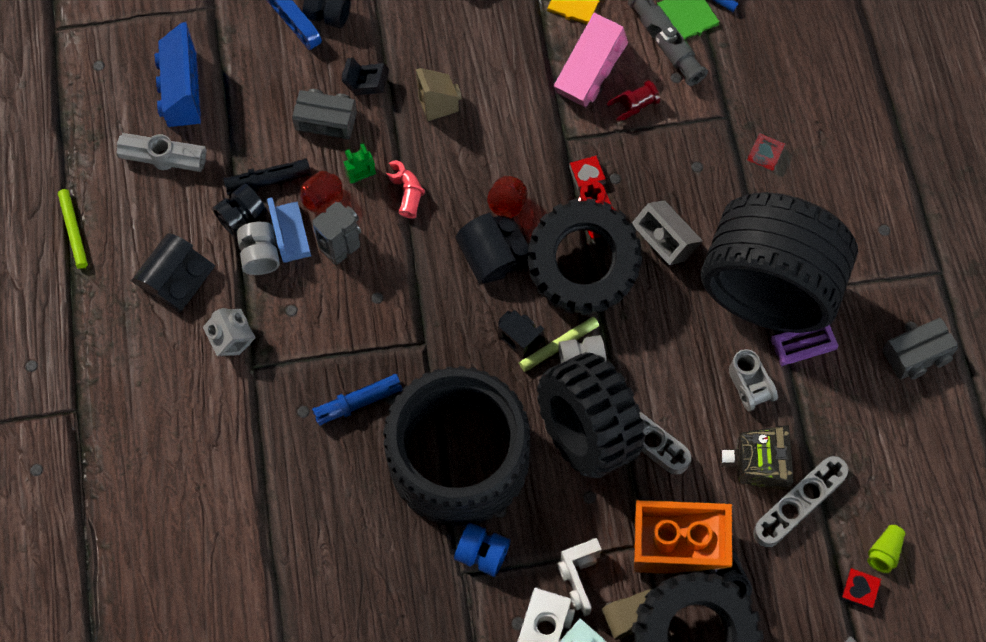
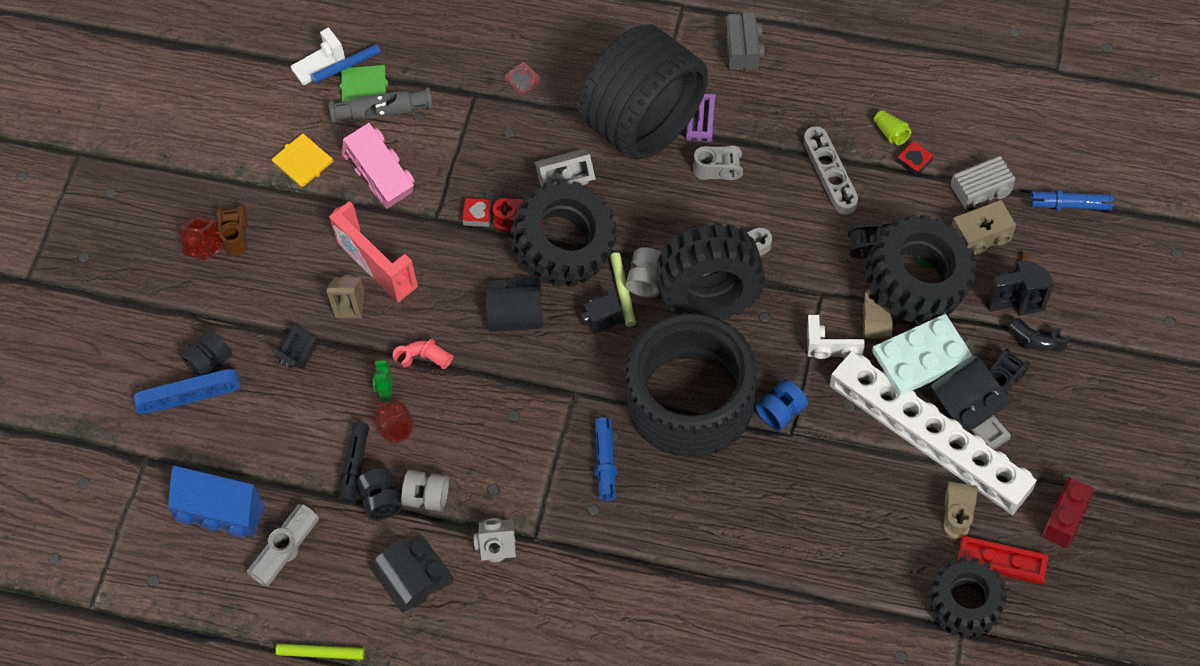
camera: 65 degrees left, 5 degrees down
(289, 231) = (416, 459): medium blue panel -> none
(324, 113) = (315, 393): dark grey brick -> none
(337, 232) = (445, 417): dark grey brick -> none
(505, 60) = (395, 278): none -> coral panel
(507, 196) = (473, 275): clear red head -> none
(636, 99) = (429, 148): dark red piece -> none
(682, 536) = (831, 256): orange slope -> none
(762, 458) = (787, 179): clear smoke torso -> none

